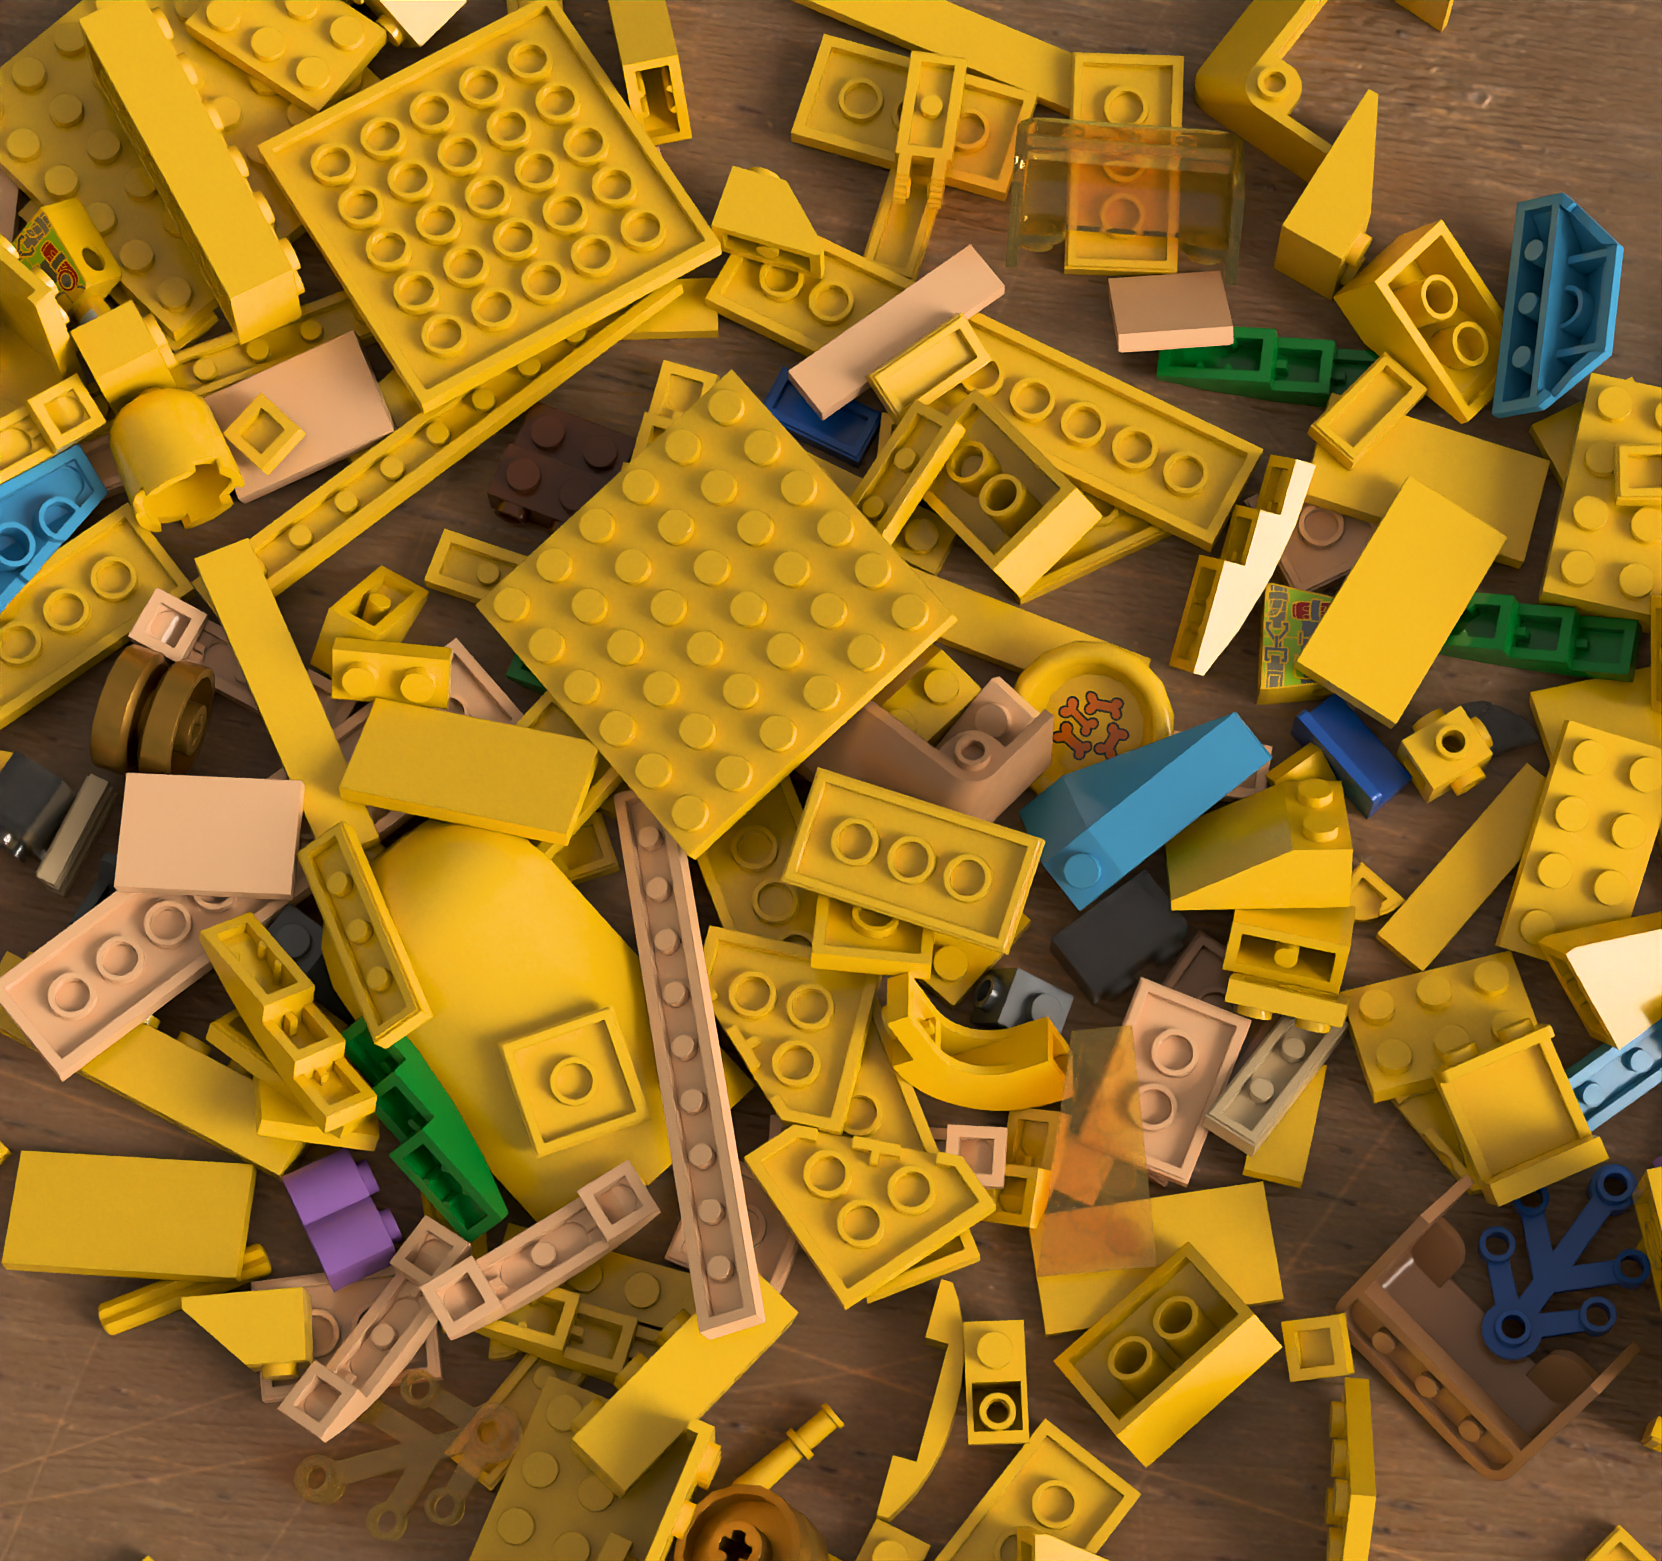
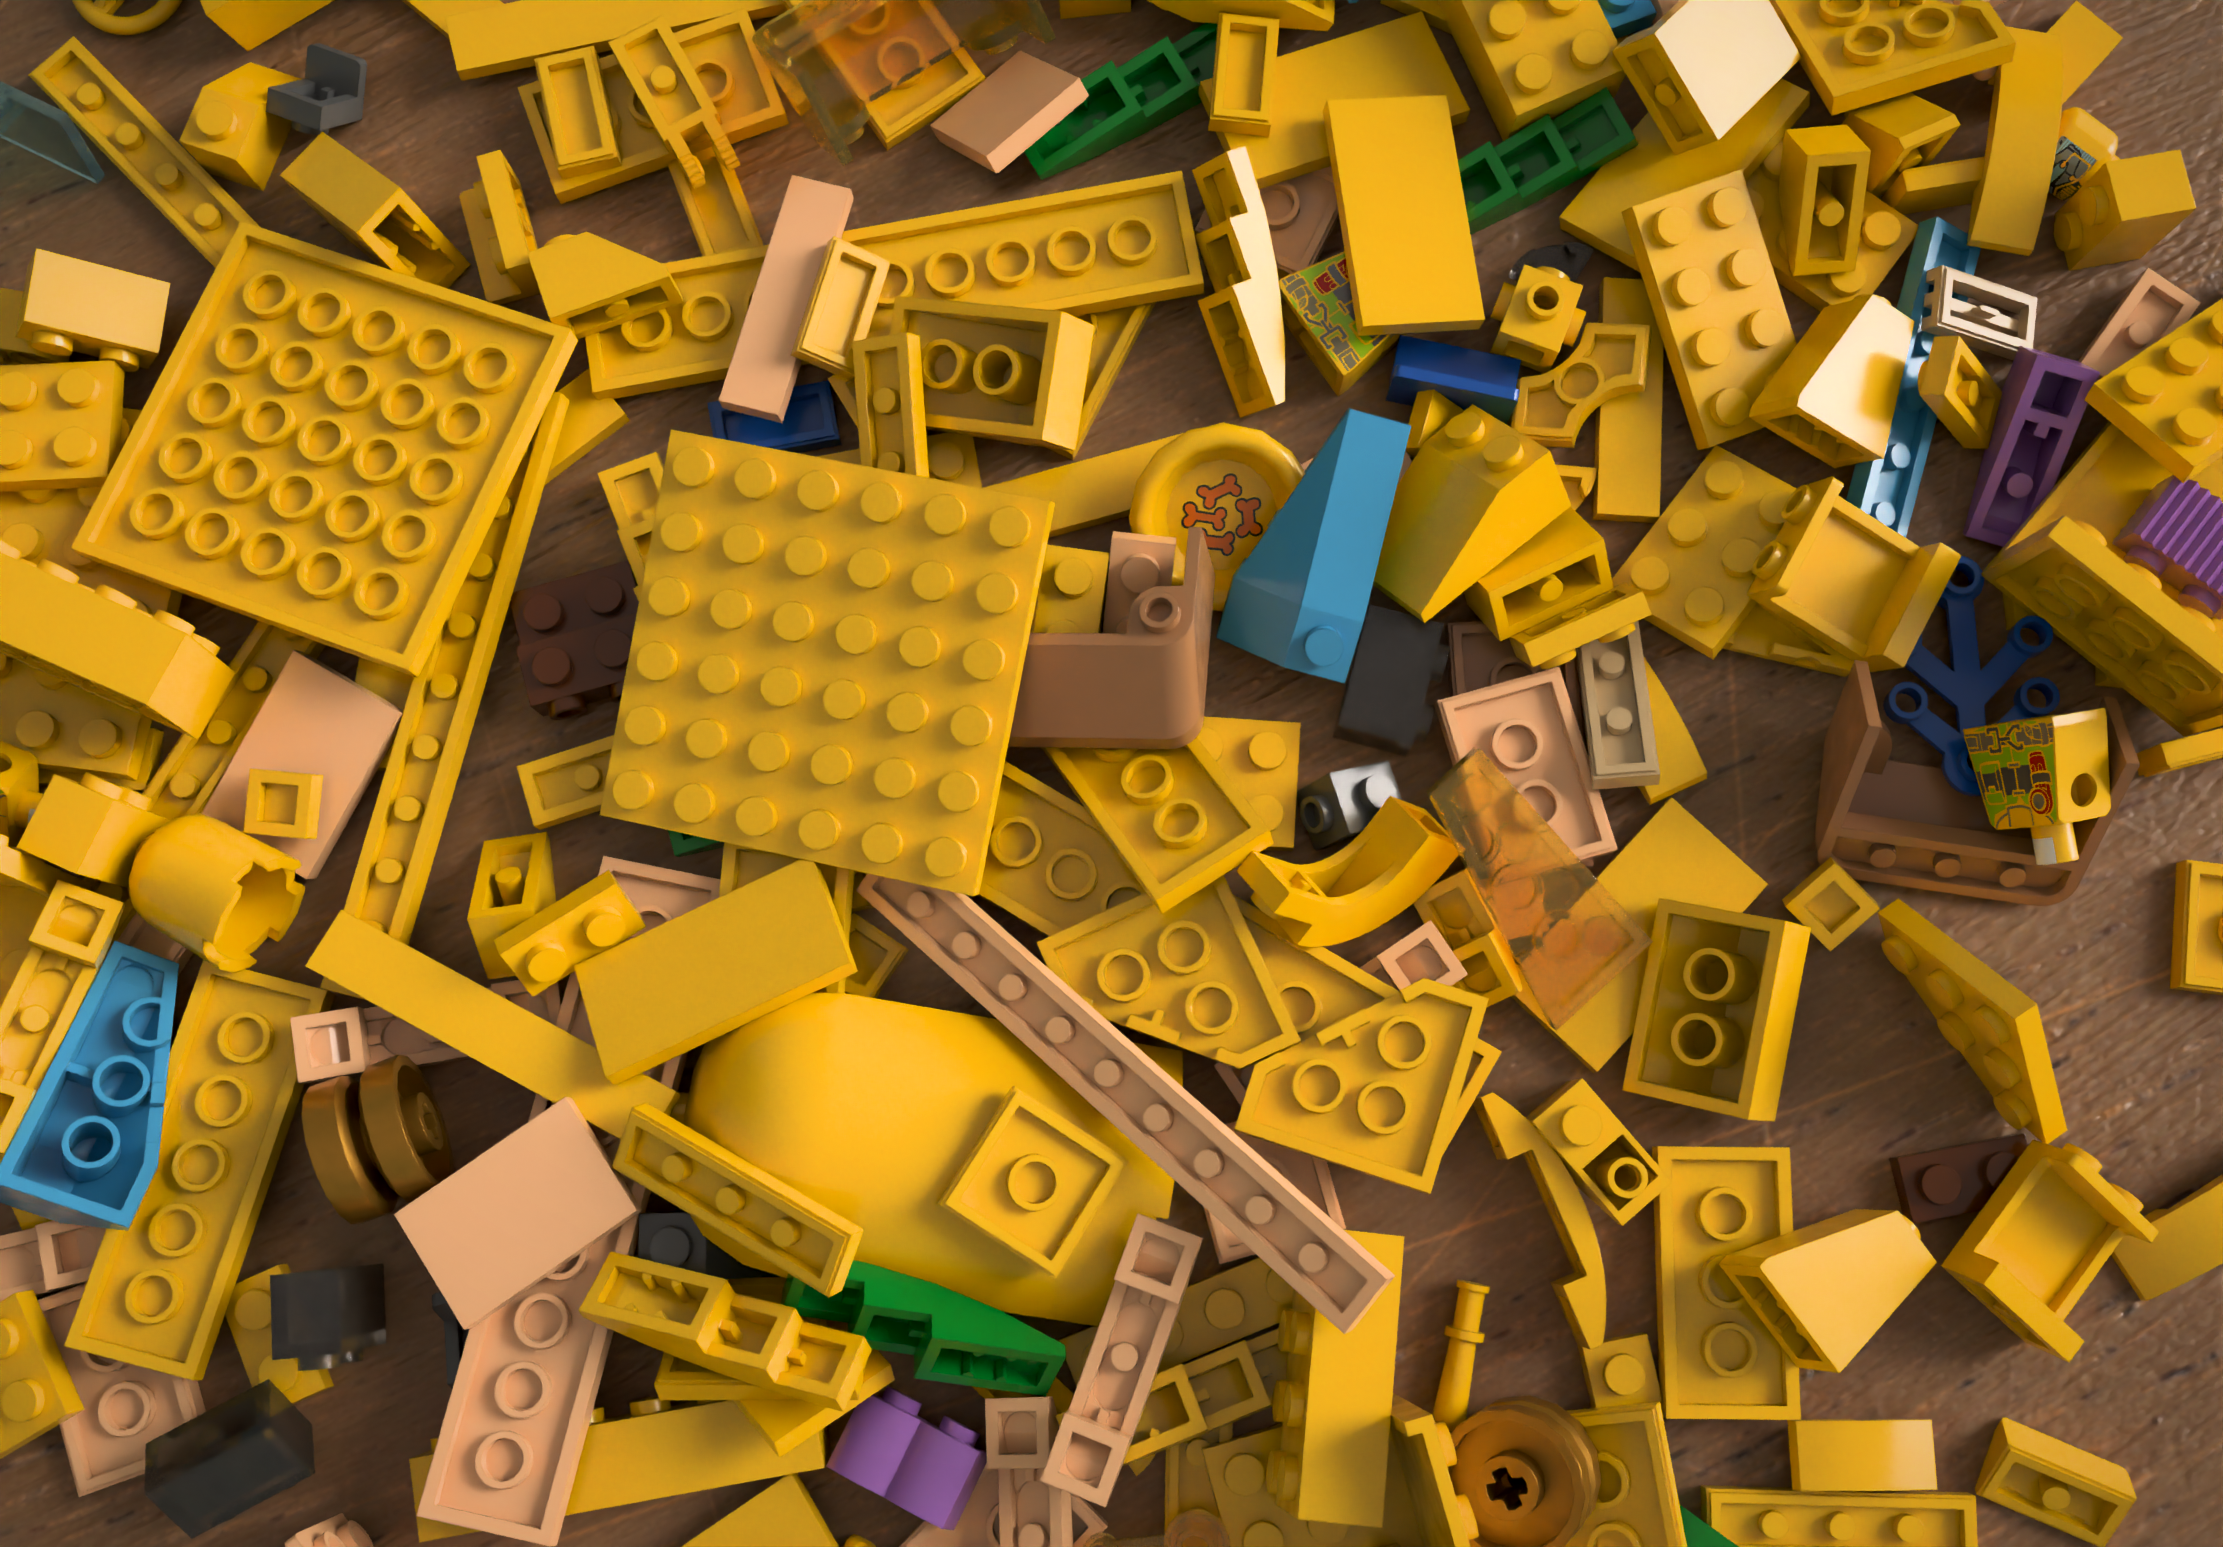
camera: 40 degrees left, 5 degrees up
(77, 835) = (392, 1297): tan tile -> none
(730, 131) = (500, 231): none -> yellow bracket
(852, 84) = (577, 112): none -> yellow tile
(913, 860) = (1179, 749): yellow tile -> none
(1466, 827) = (1603, 366): none -> yellow tile
(1536, 1363) = (2044, 776): none -> yellow torso

